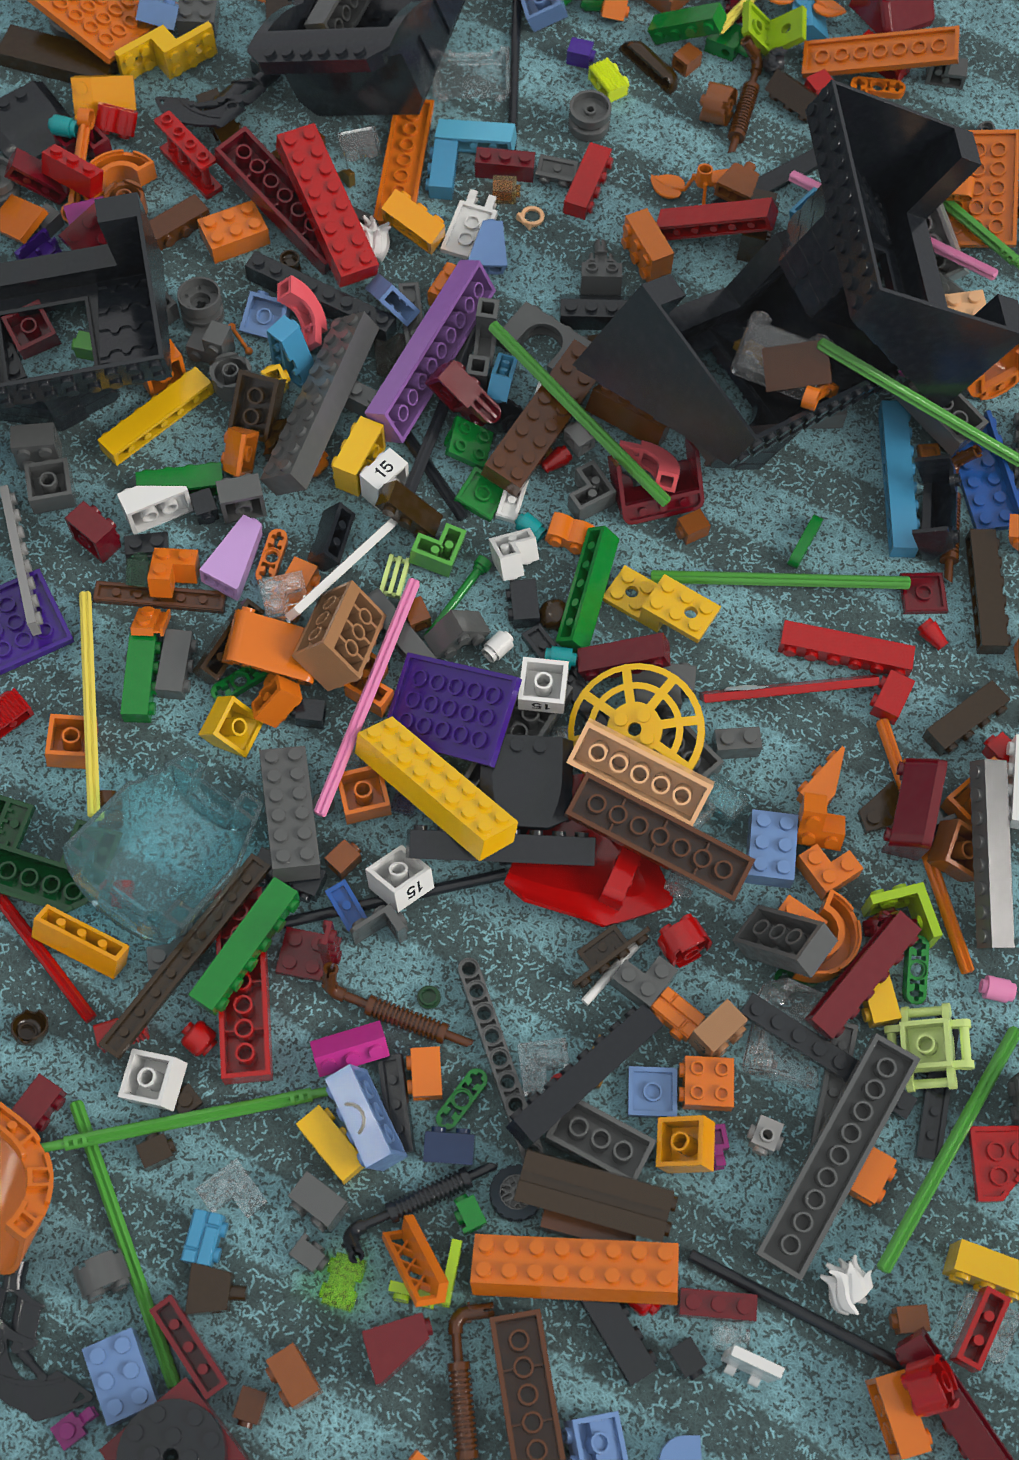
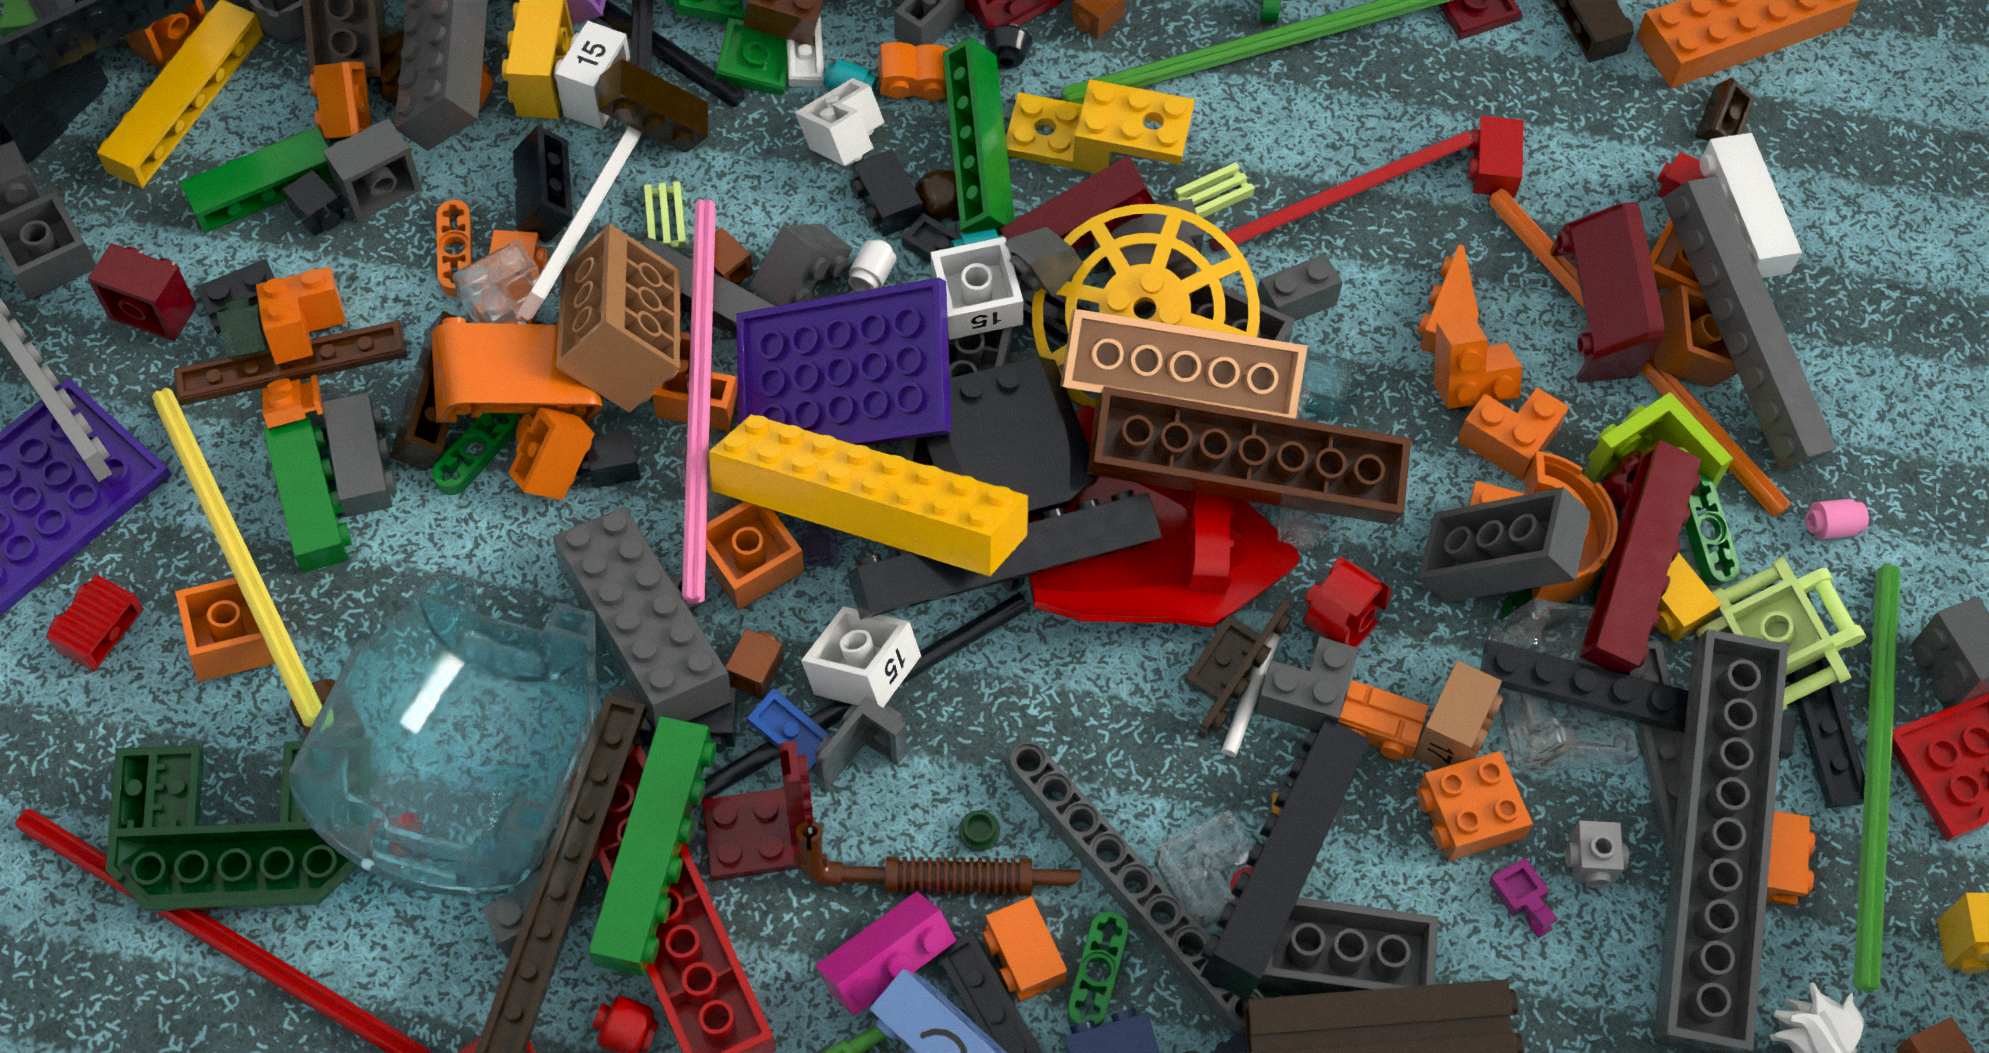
camera: 20 degrees left, 5 degrees down
(80, 941) = (361, 939): light orange brick -> none
(153, 505) = (229, 222): white slope -> none
(231, 726) = (488, 519): yellow slope -> none
(233, 558) = (392, 266): lavender slope -> none
(439, 554) = (723, 159): bright green brick -> none
(481, 566) = (796, 160): green piece -> none
(586, 681) = (1043, 259): none -> dark grey slope
(630, 534) = (1009, 44): none -> black cone
(652, 1092) = (1393, 851): medium blue plate -> none
(685, 1144) = (1483, 908): light orange brick -> none
(711, 656) = (1234, 178): none -> yellowish green tile
(744, 687) = (1275, 209): white sticker -> none
(773, 845) = (1420, 407): medium blue brick -> none
(845, 649) = (1397, 110): red brick -> none
(879, 810) = (1553, 321): dark brown wing -> none
(932, 634) = (1515, 52): red cone -> none
(966, 718) = (1618, 151): dark brown brick -> none

